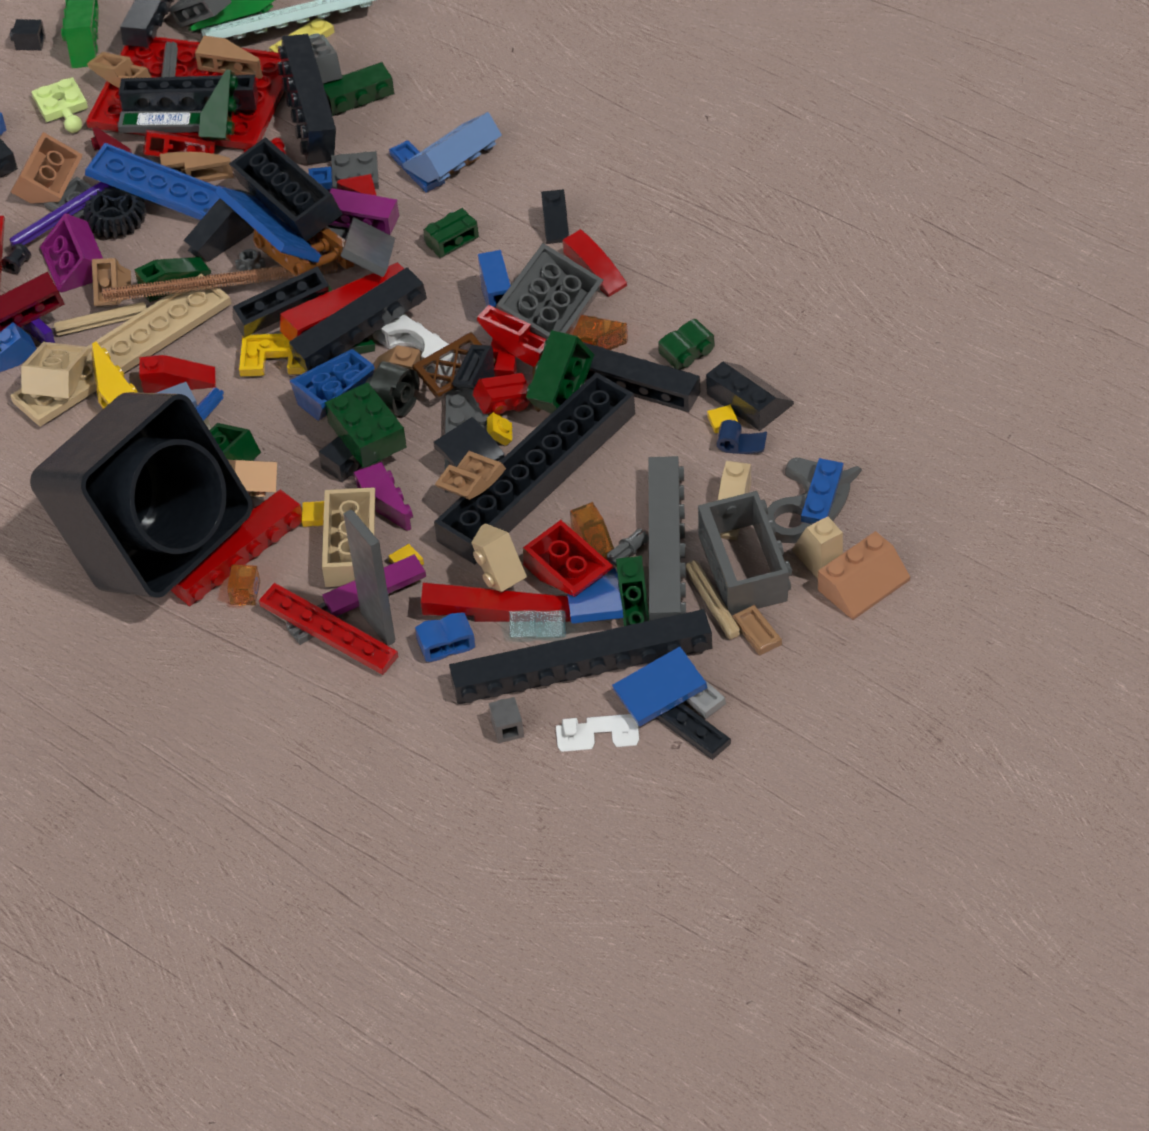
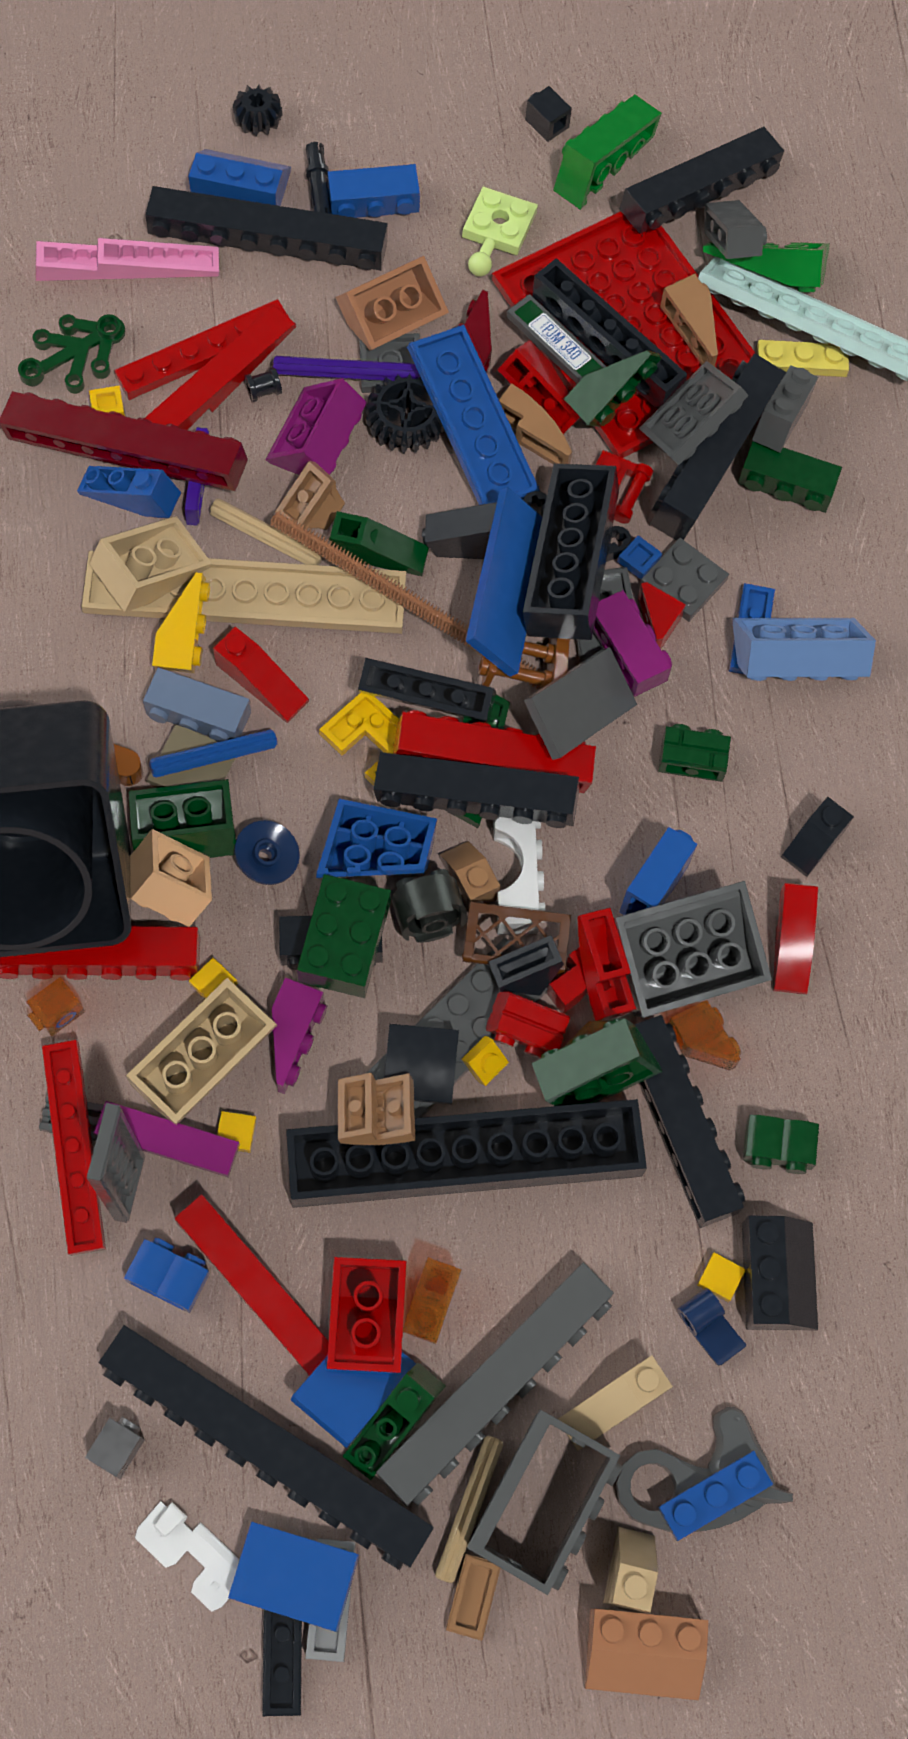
camera: 35 degrees right, 20 degrees up
(114, 67) = (578, 241): medium nougat slope -> none
(170, 59) = (634, 276): dark grey axle -> none
(250, 260) = (458, 595): dark grey gear -> none
(277, 437) = (276, 843): none -> dark blue dish
(279, 84) = (694, 412): none -> dark grey plate
(497, 558) = (293, 1243): tan slope -> none
(537, 624) = (265, 1351): clear light blue slope -> none
(628, 546) = (451, 1350): dark grey axle -> none

